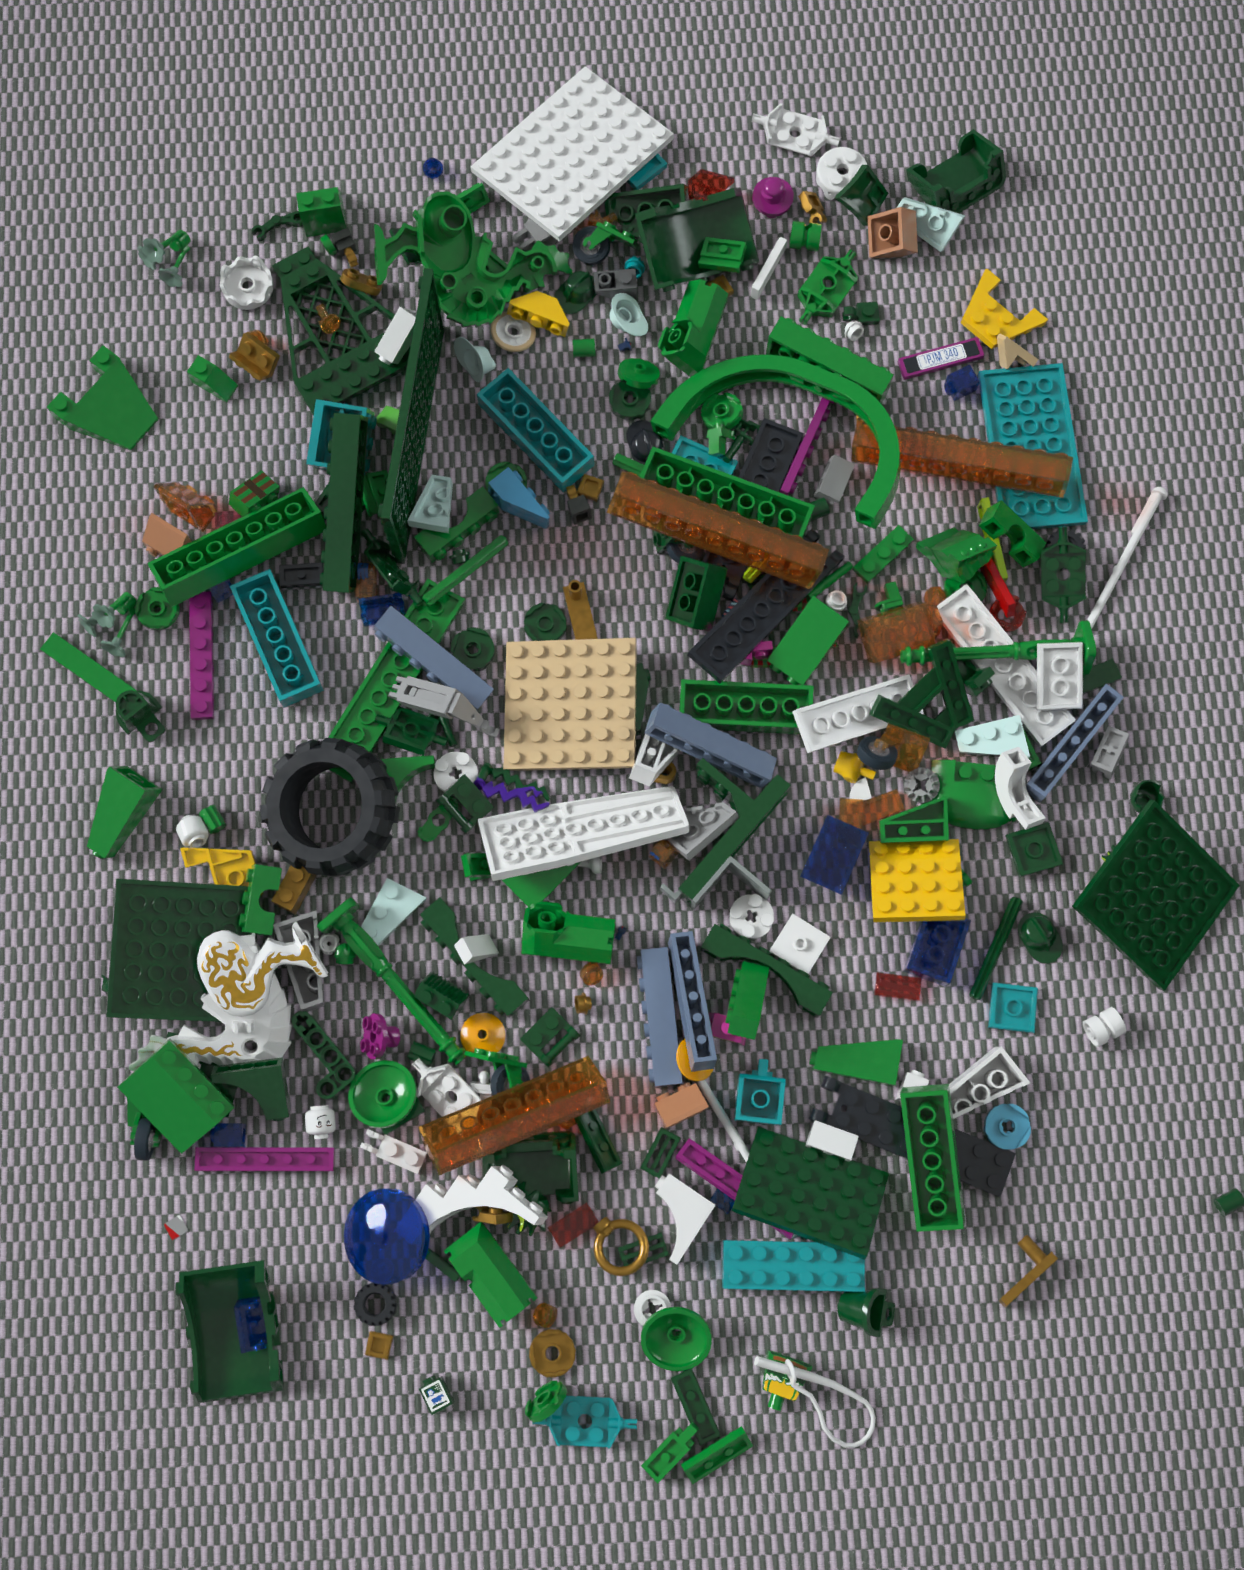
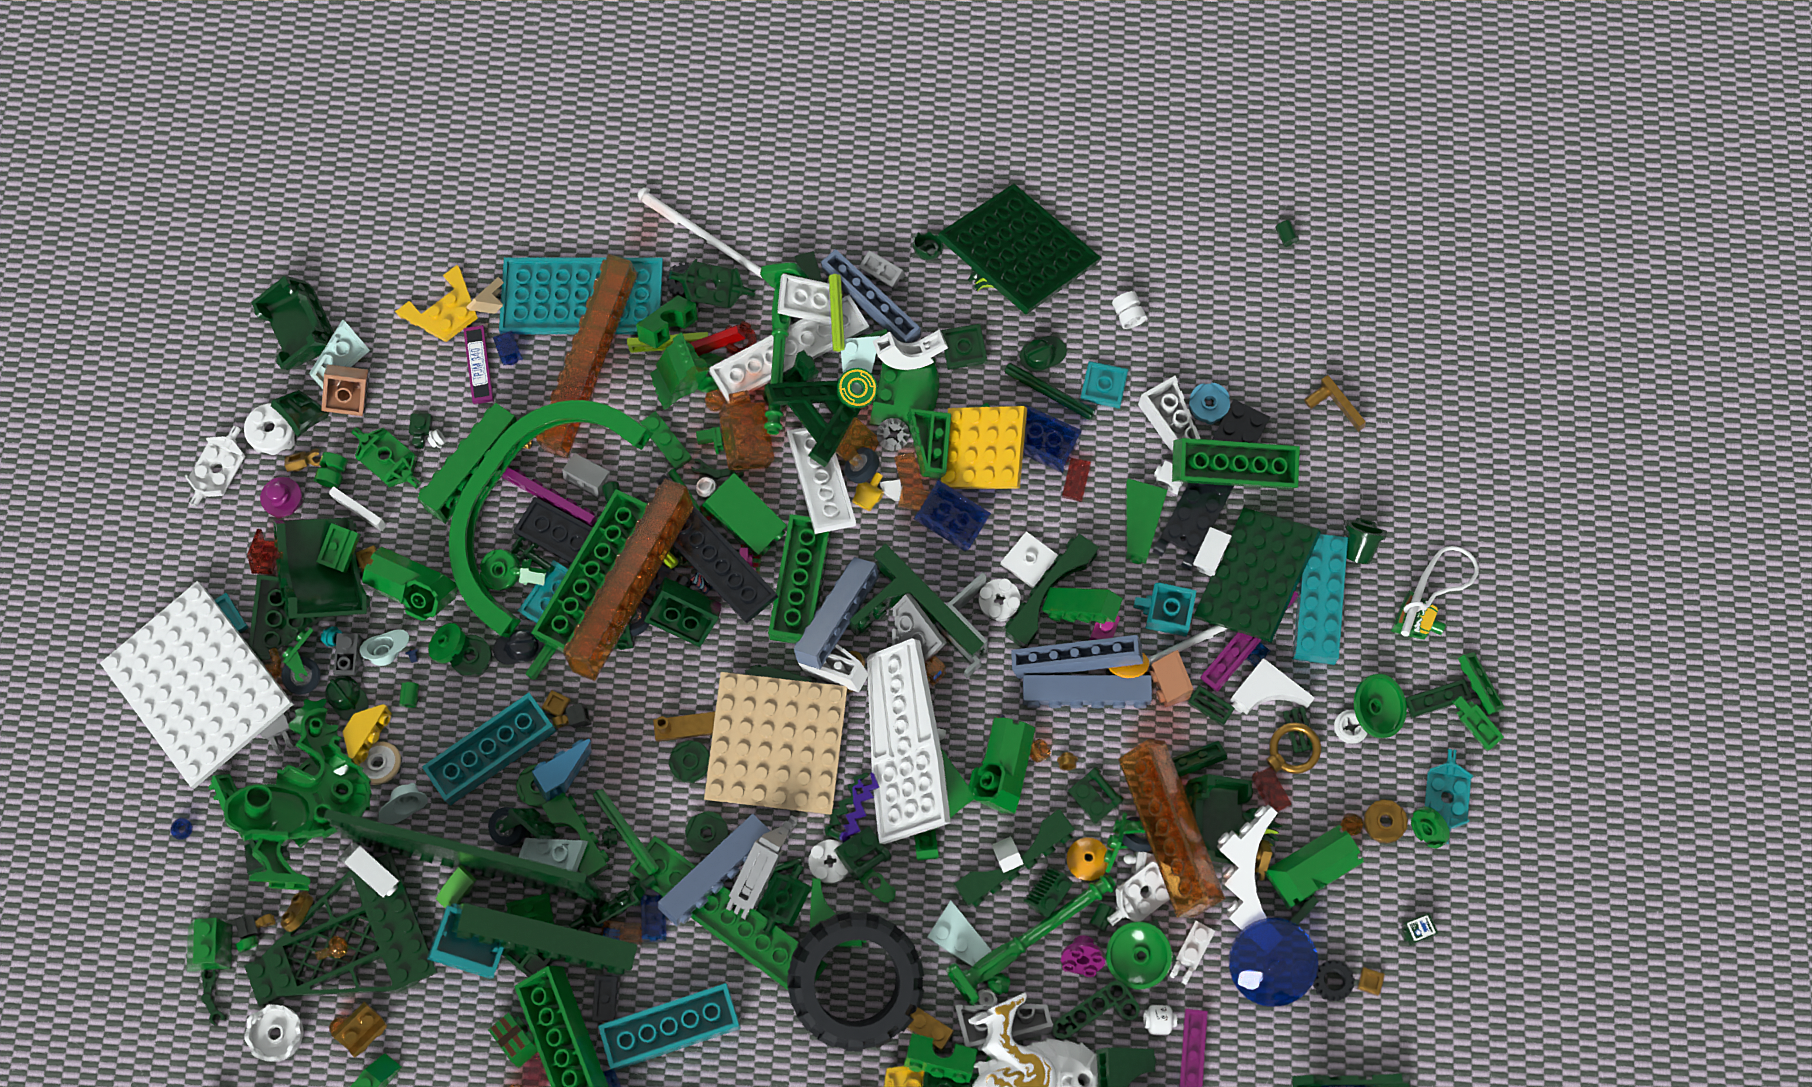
camera: 80 degrees left, 5 degrees down
(461, 463) = (509, 825): none -> plate
(979, 743) = (859, 376): none -> green tile
(1049, 706) = (836, 312): none -> lime axle

